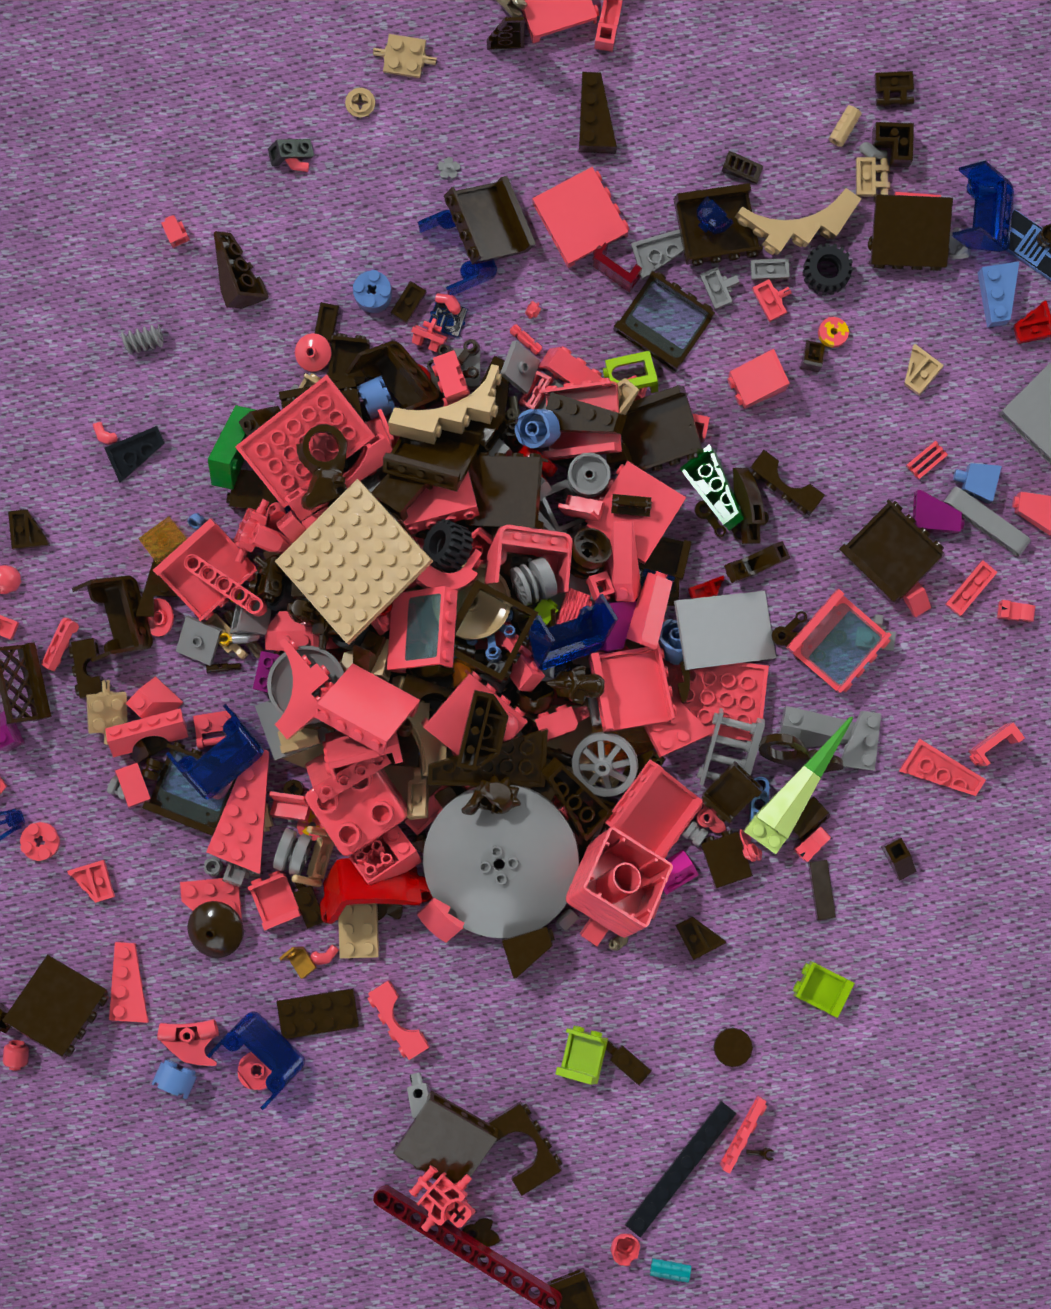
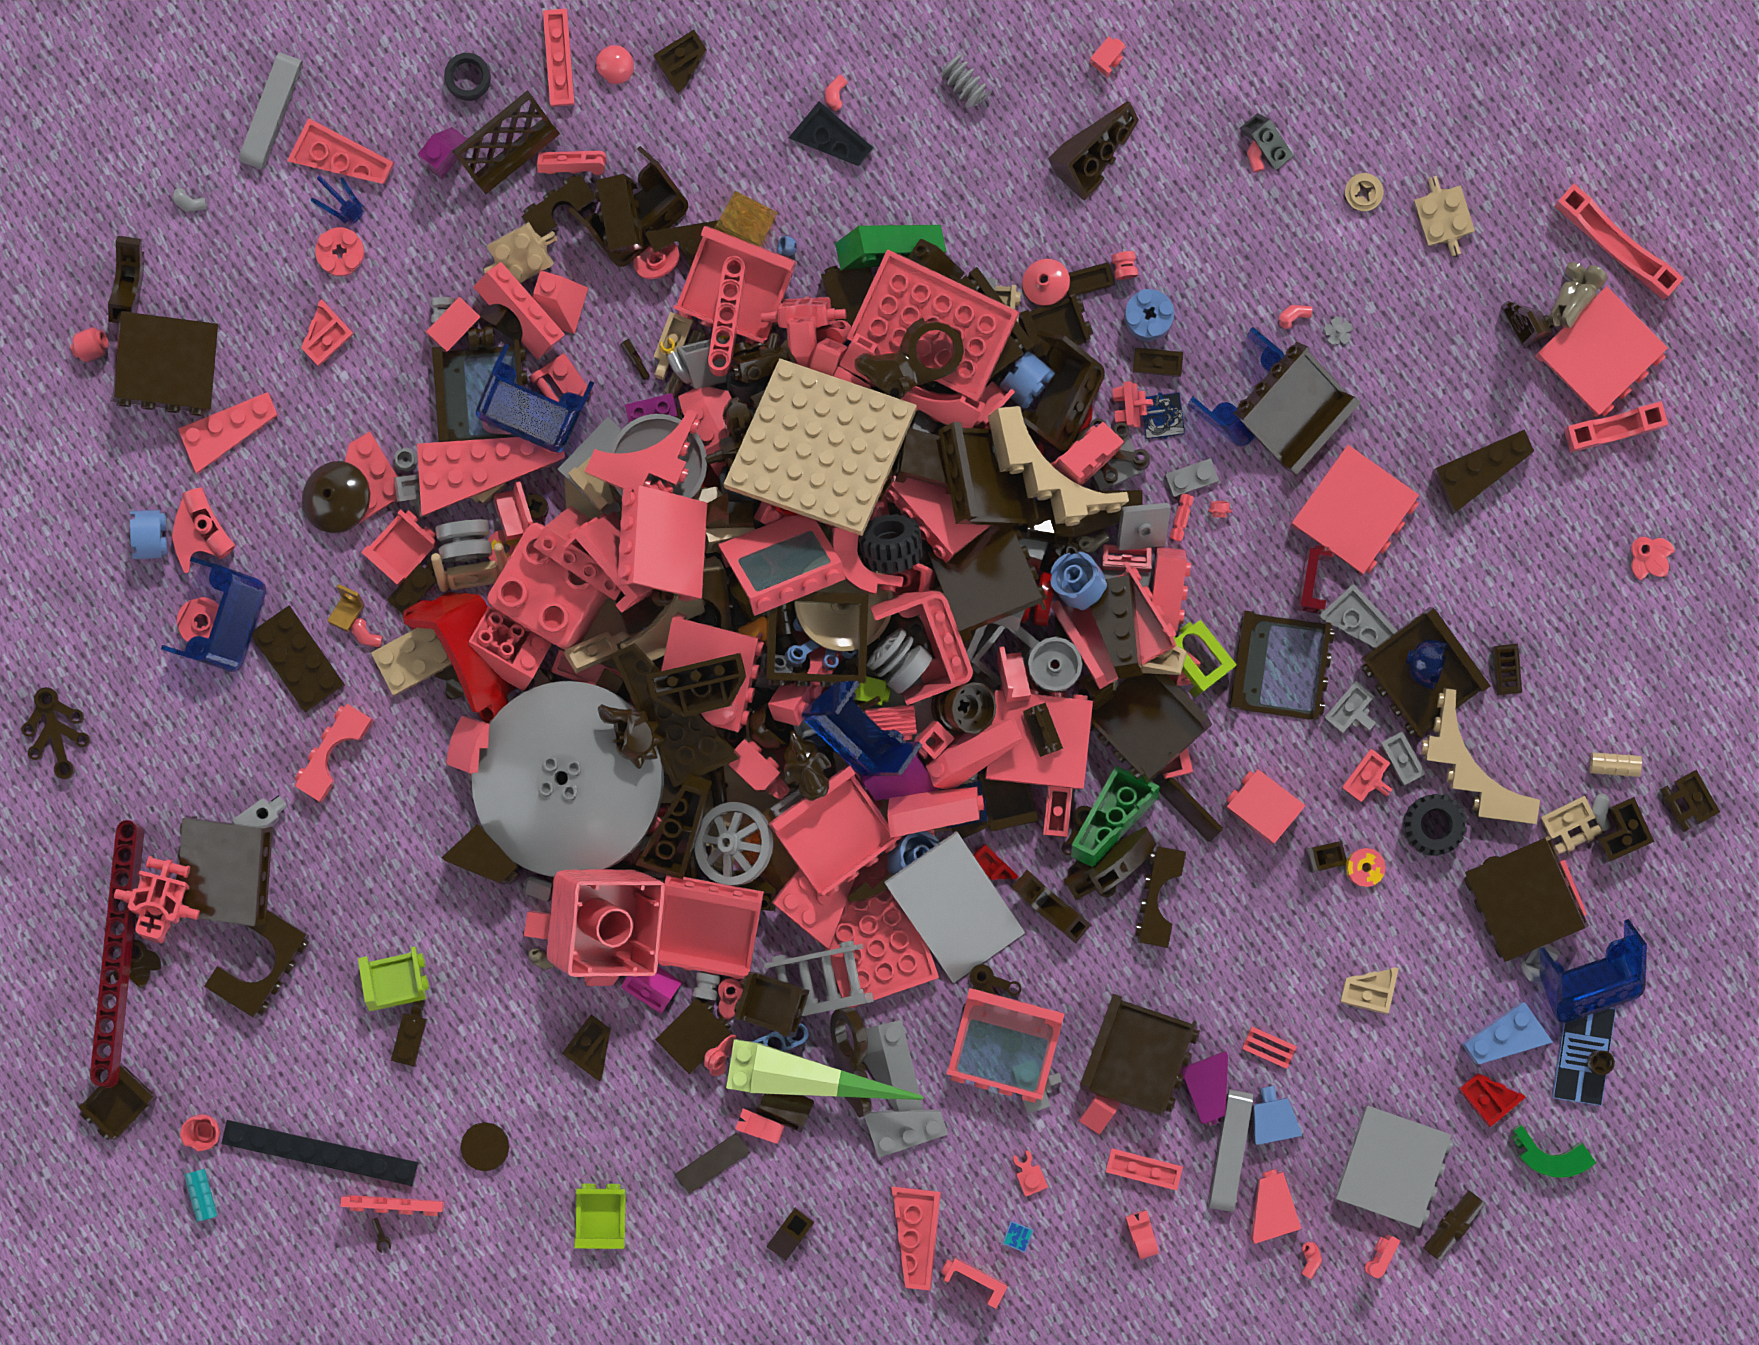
camera: 60 degrees right, 0 degrees up
(113, 627) = (619, 213): none -> dark brown wedge
(199, 640) = (652, 316): light grey plate -> none
(282, 1215) = (54, 729): none -> dark brown plant
(328, 291) = (1125, 265): none -> coral wheel
(420, 193) = (1292, 312): none -> coral arm
(450, 301) = (1181, 408): coral arm -> none
(501, 318) = (1192, 477): none -> light grey plate
(691, 525) = (1057, 811): none -> coral brick
(715, 32) = (1653, 560): none -> coral plate
(735, 432) = (1190, 809): none -> dark brown slope
(939, 670) = (1030, 1177): none -> coral plate
(976, 699) = (1017, 1236): none -> tile

